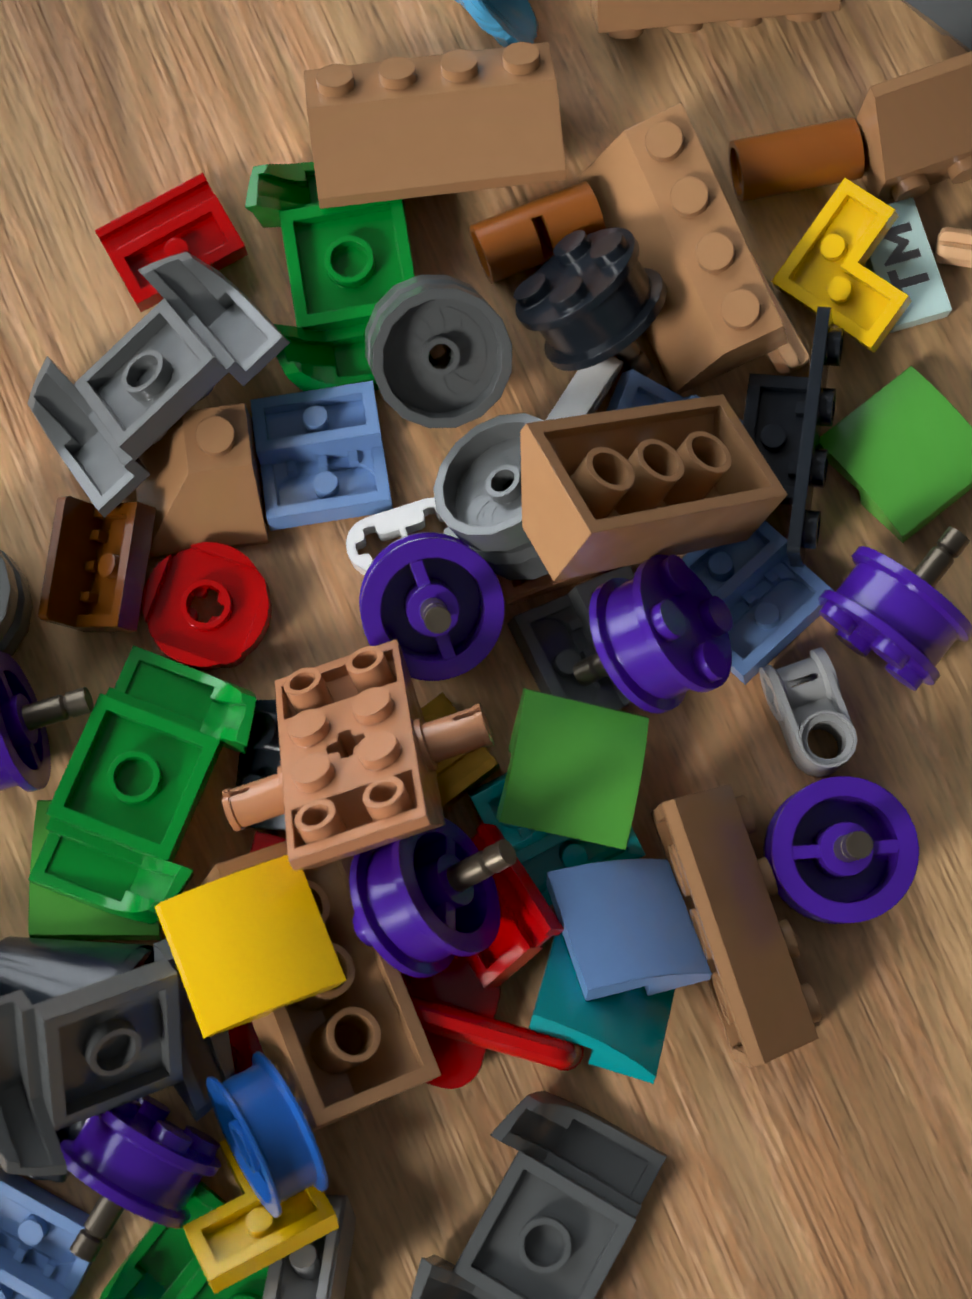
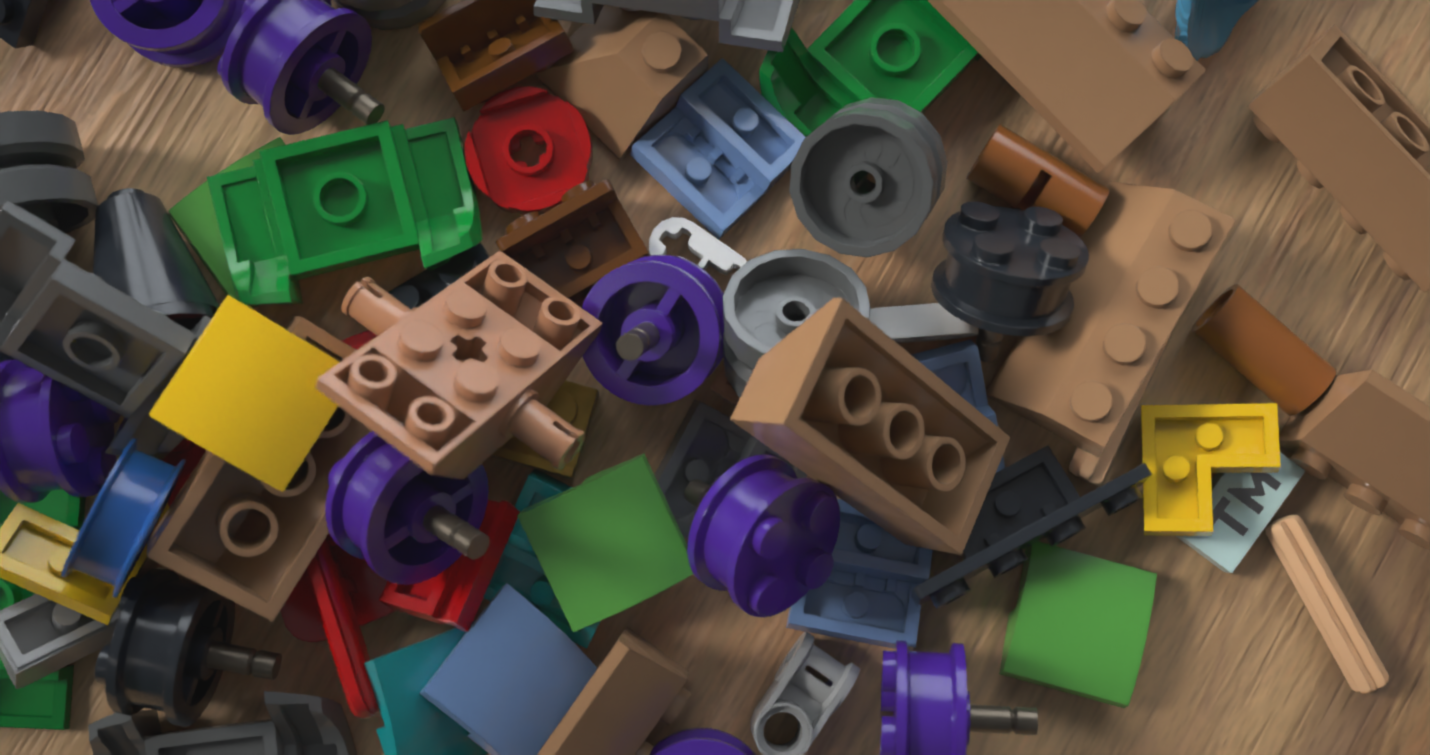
camera: 50 degrees right, 5 degrees up
(312, 616) = (575, 240): none -> reddish brown bracket
(400, 1182) = (173, 649): none -> black wheel

